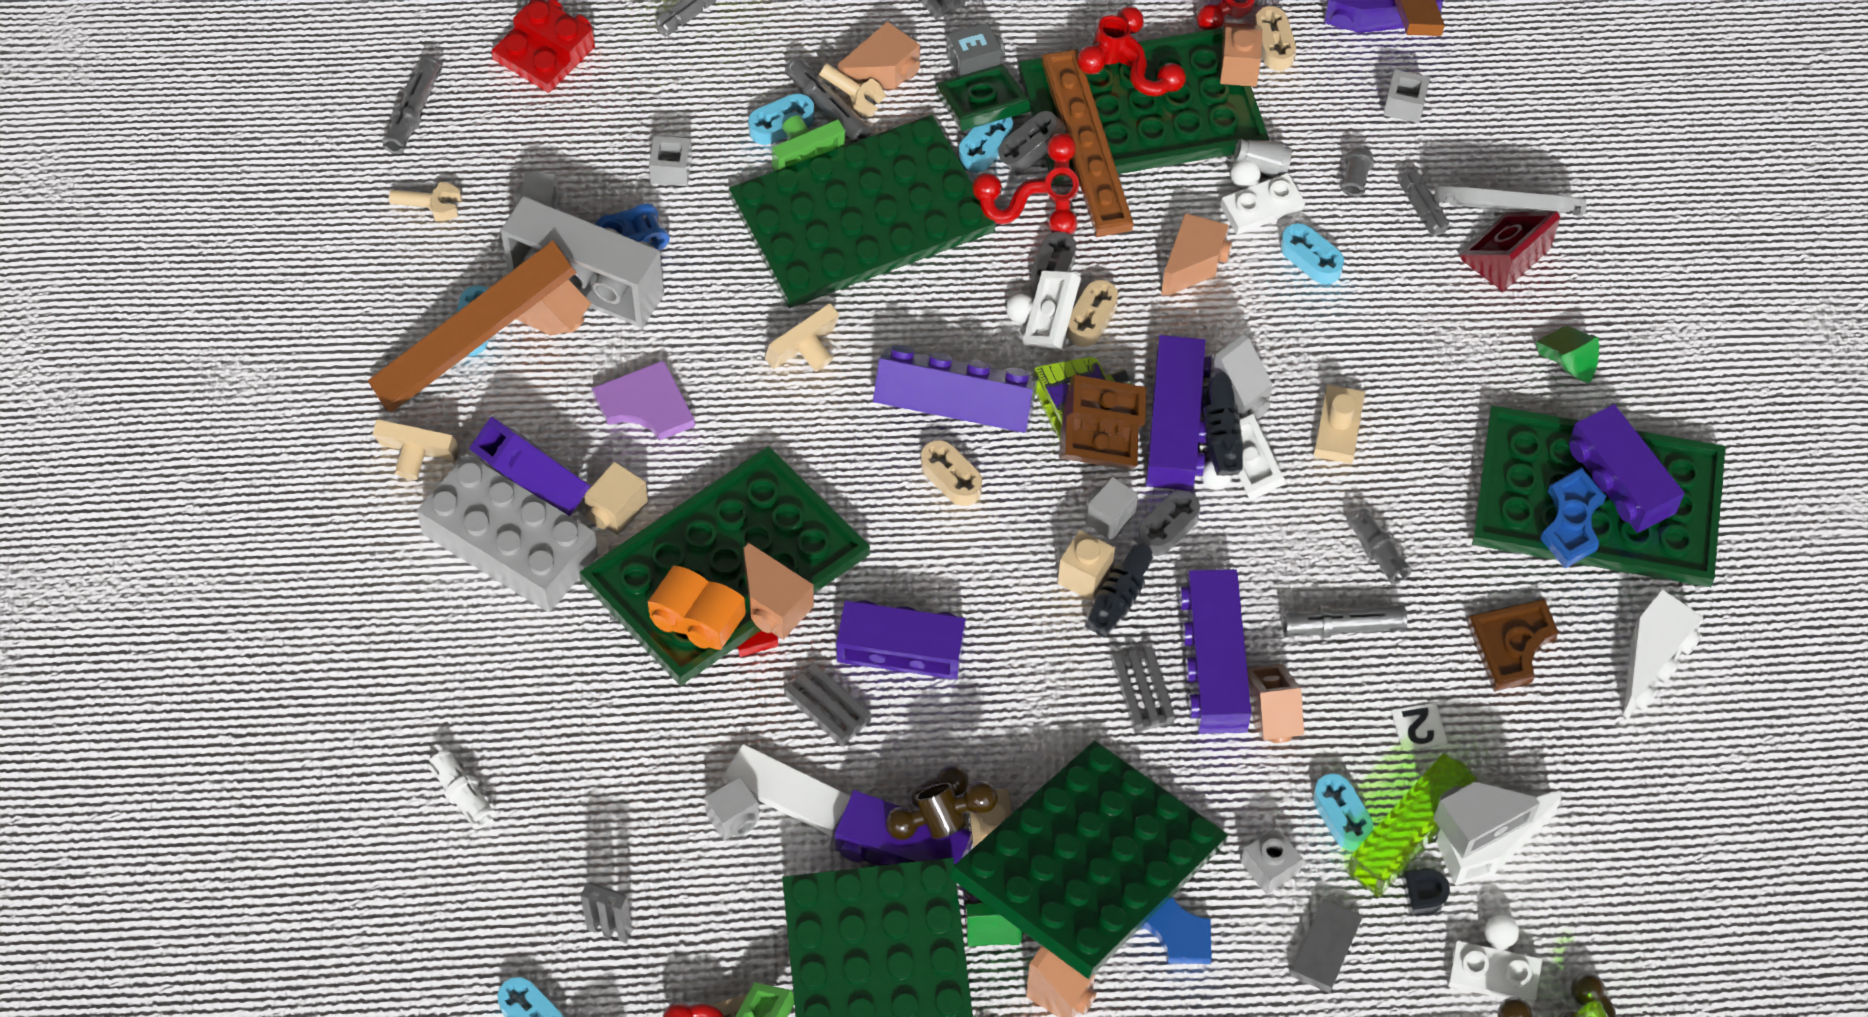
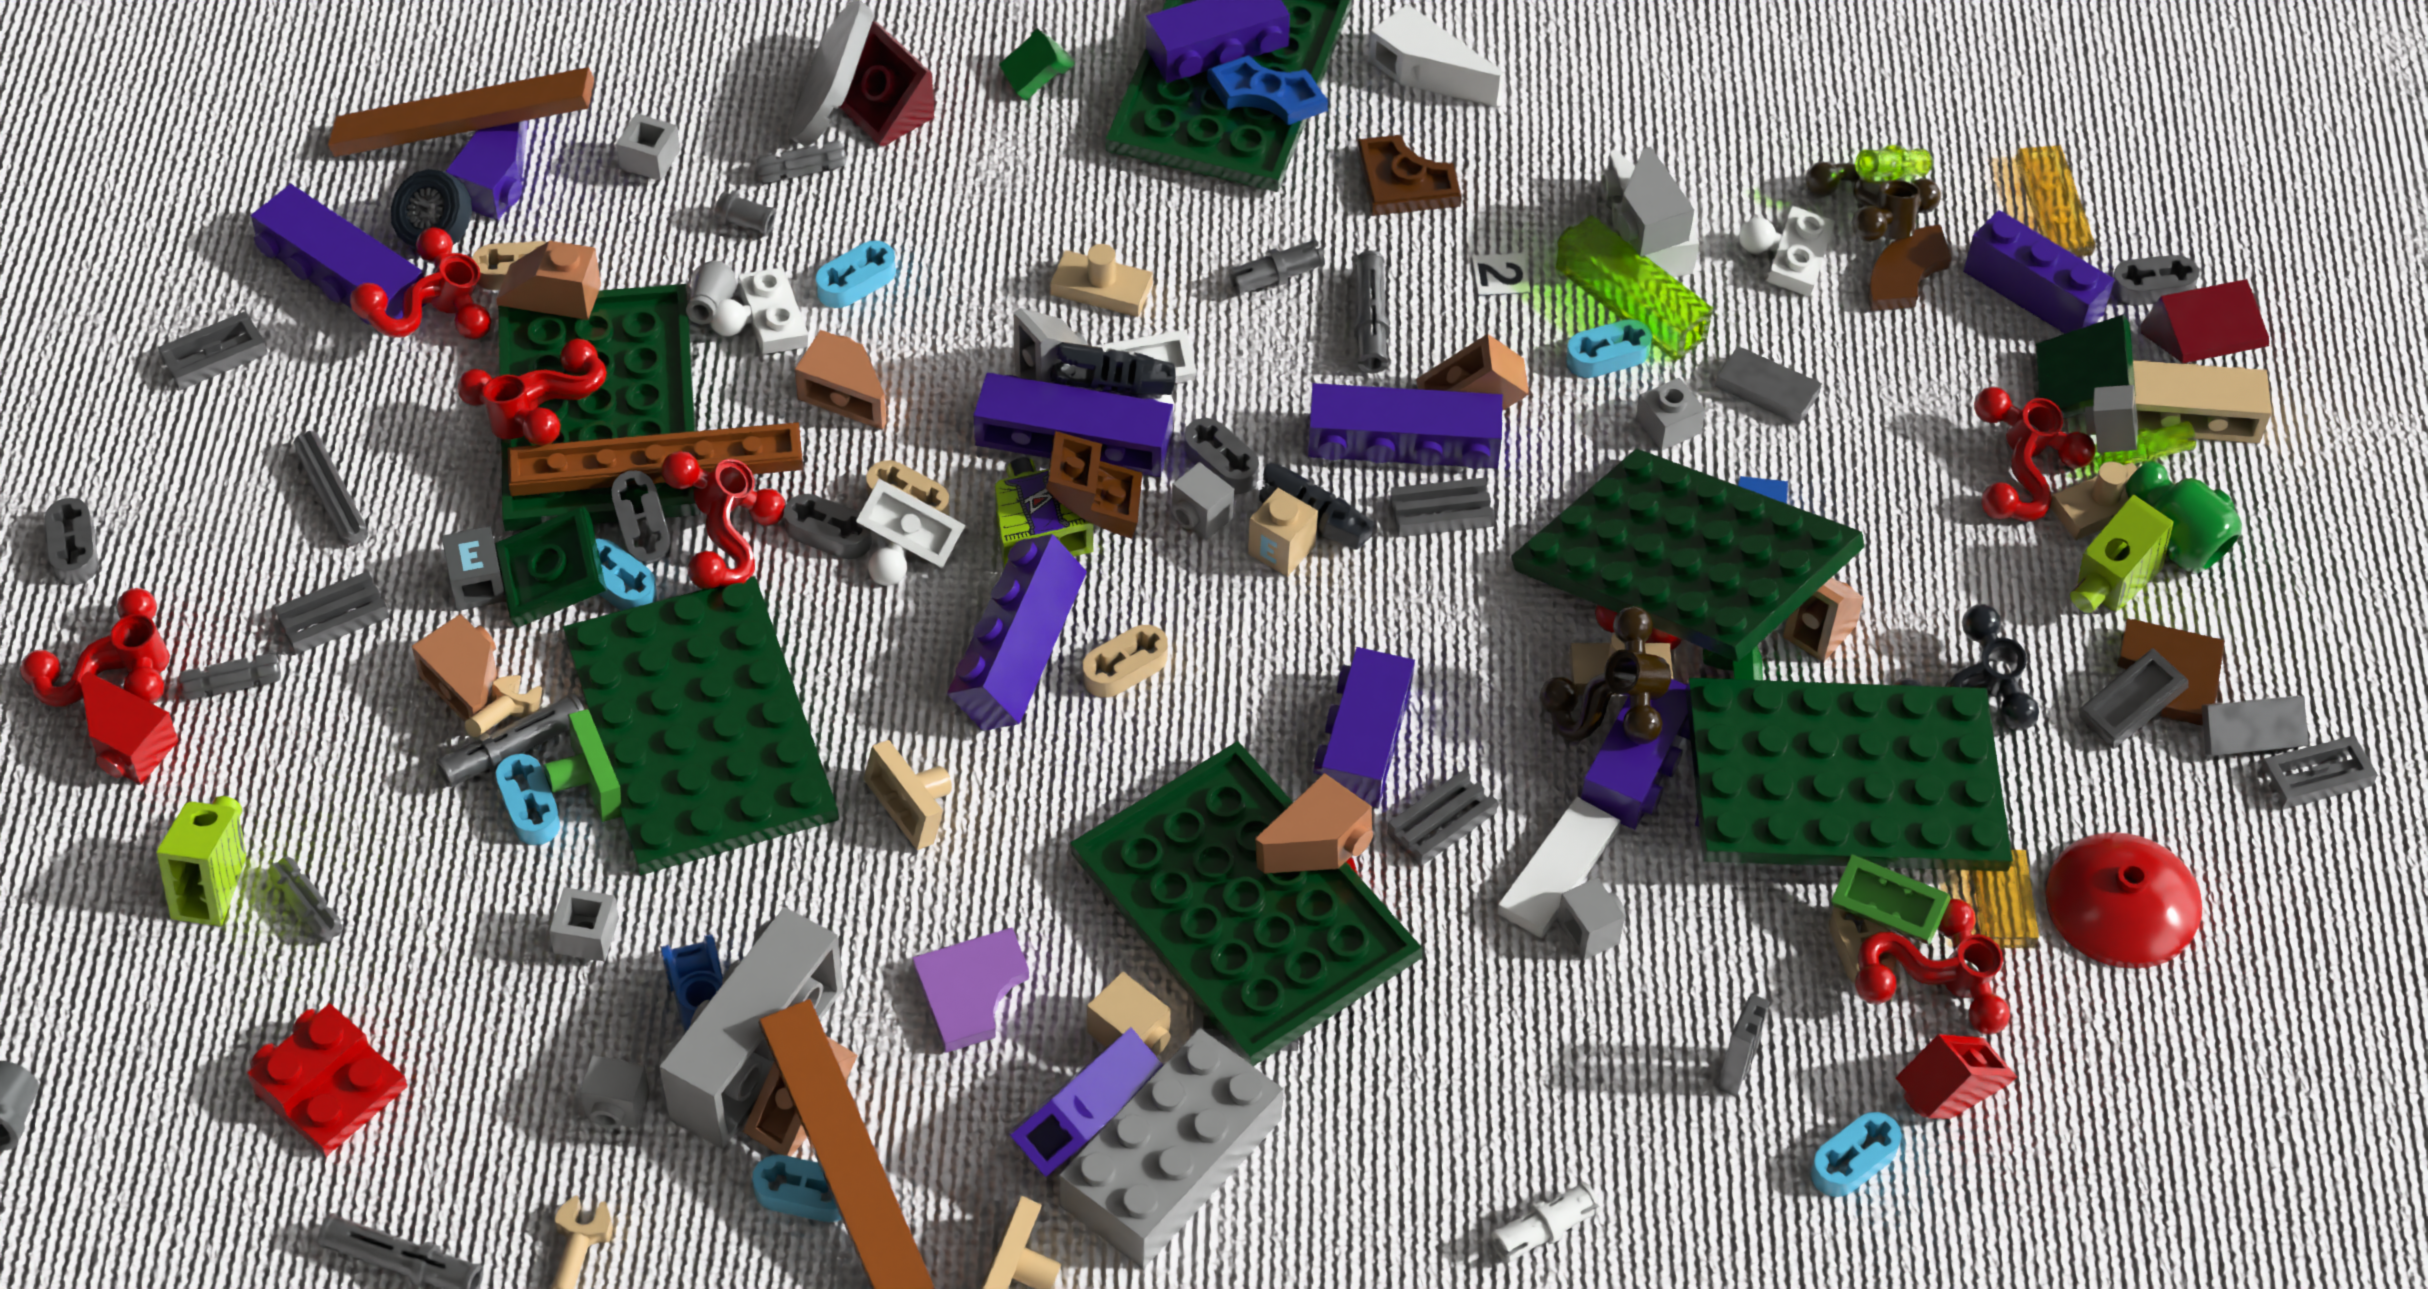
camera: 85 degrees left, 5 degrees down
(696, 608) = (1334, 912): orange brick -> none
(1425, 890) = (1709, 288): black tile -> none

